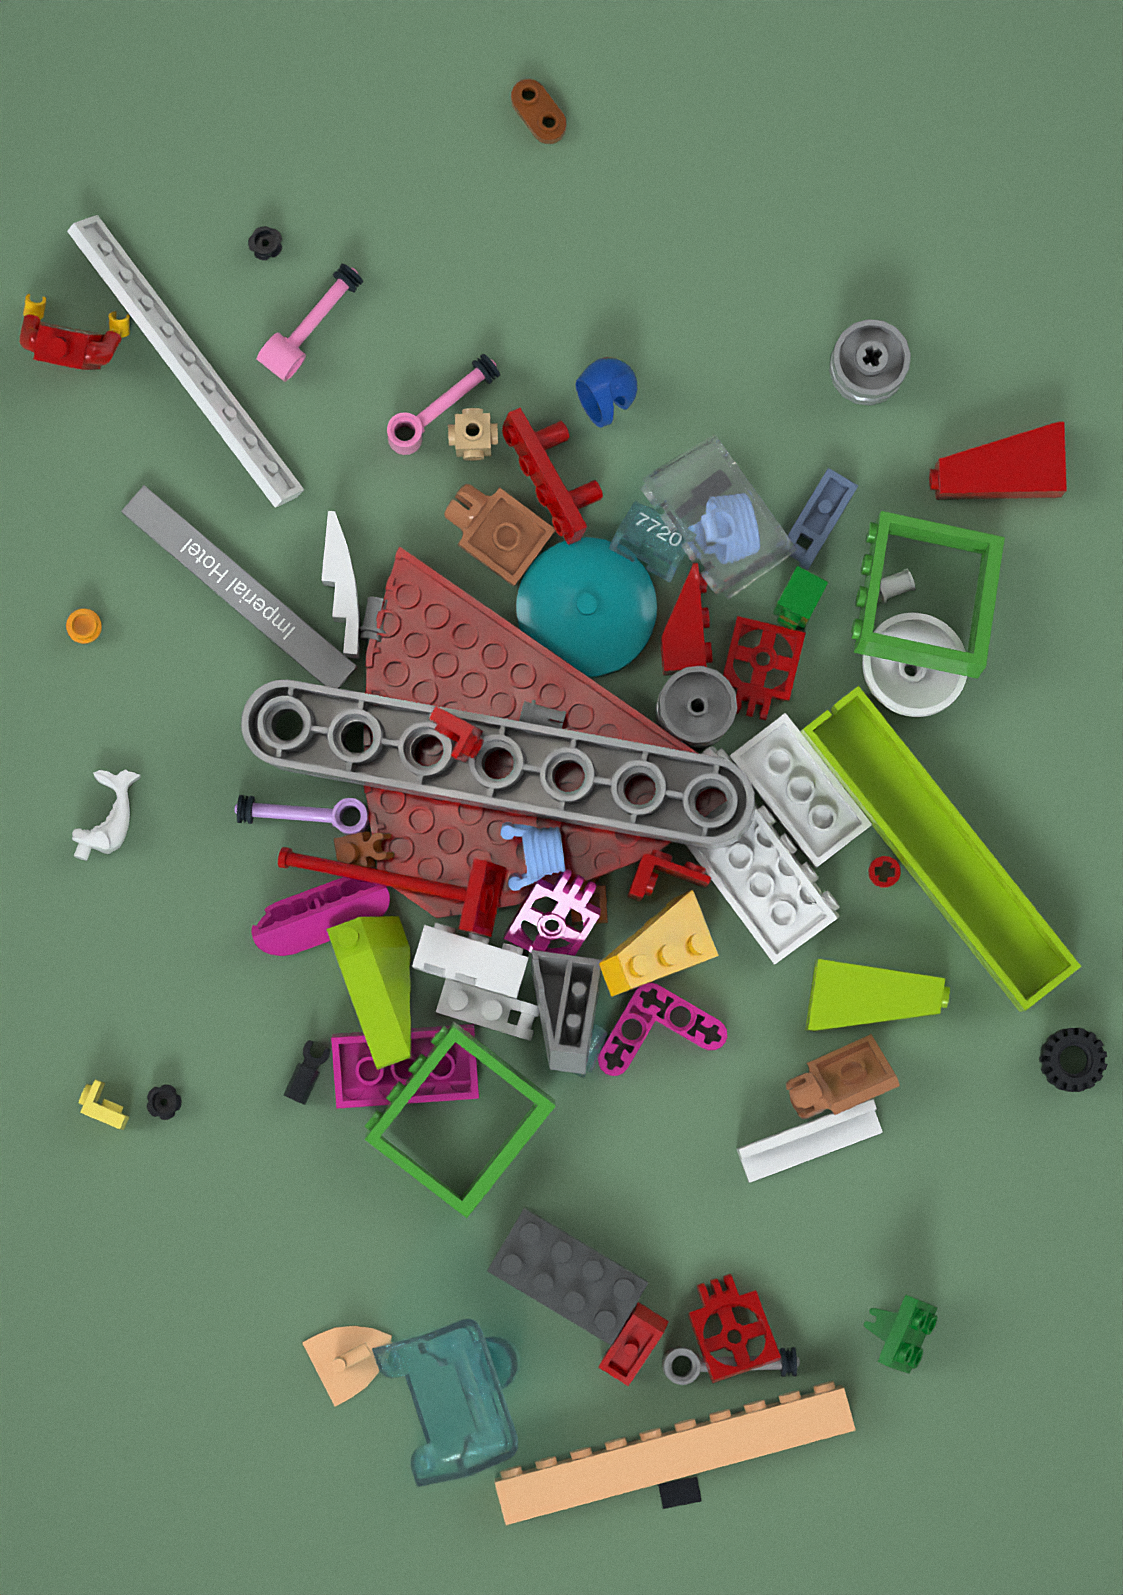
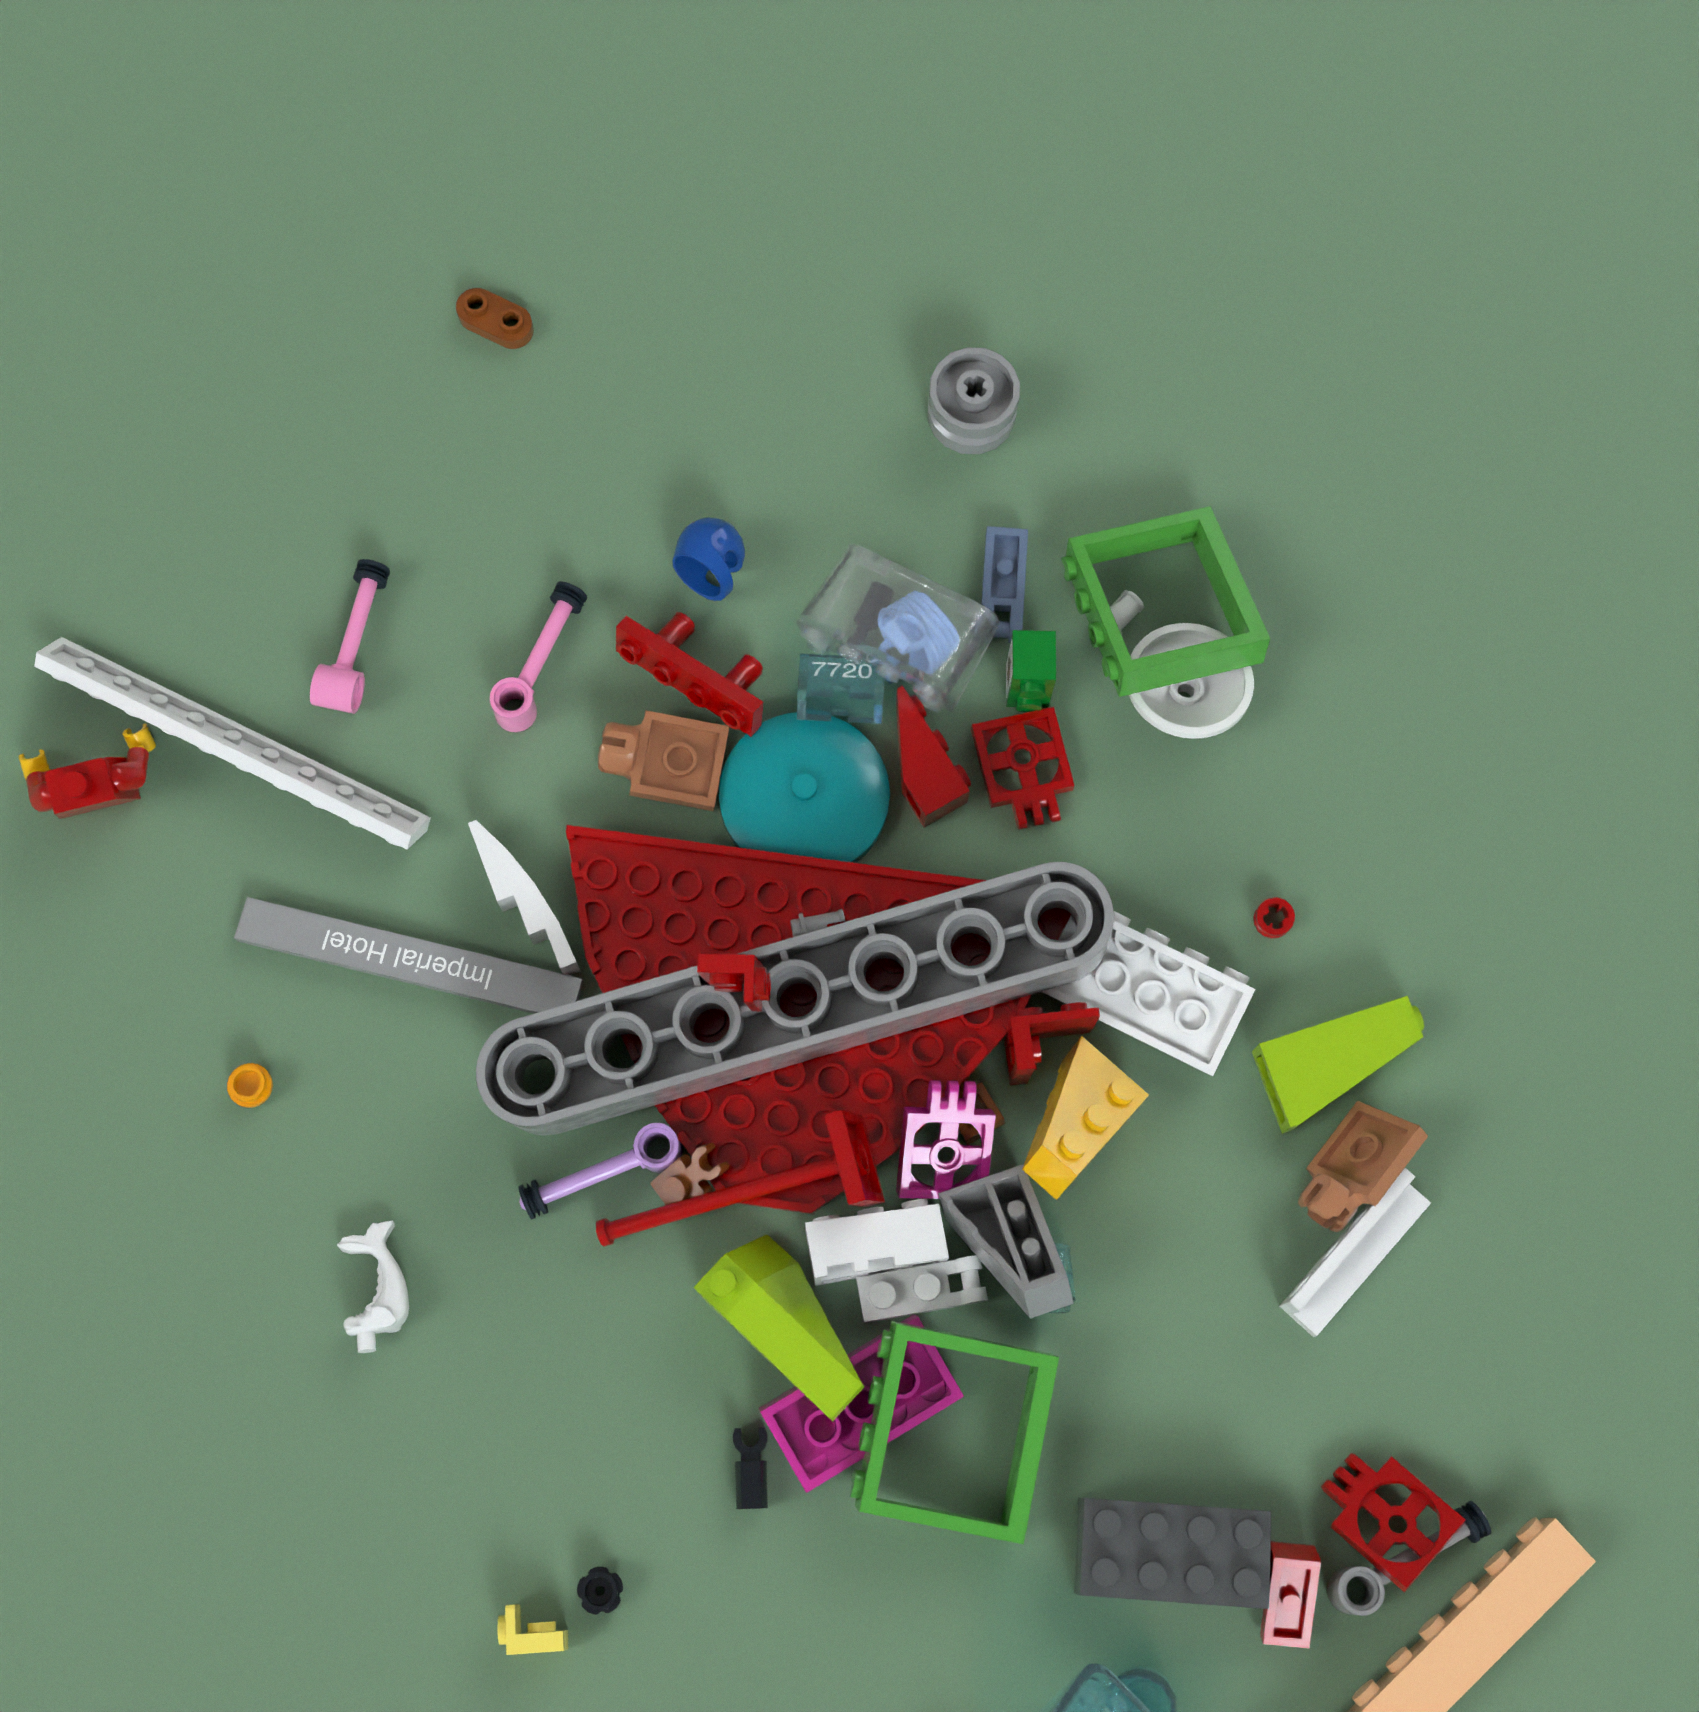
camera: 25 degrees left, 10 degrees down
(265, 234) = (263, 570): black plate -> none
(304, 918) = (661, 1289): dark pink brick -> none
(369, 629) = (576, 929): light grey pin -> none
(473, 447) = (588, 669): tan brick -> none
(541, 849) = (896, 1074): light blue piece -> none
(647, 1017) = (1105, 1207): dark pink beam -> none
(706, 690) = (980, 834): light grey wheel -> none
(800, 790) = (1146, 874): white plate -> none
(903, 1332) = (1583, 1417): green plate -> none
(940, 850) = (1326, 863): lime piece -> none
(1012, 467) = (1173, 440): red slope -> none
(1094, 1054) = (1611, 1006): black tyre -> none

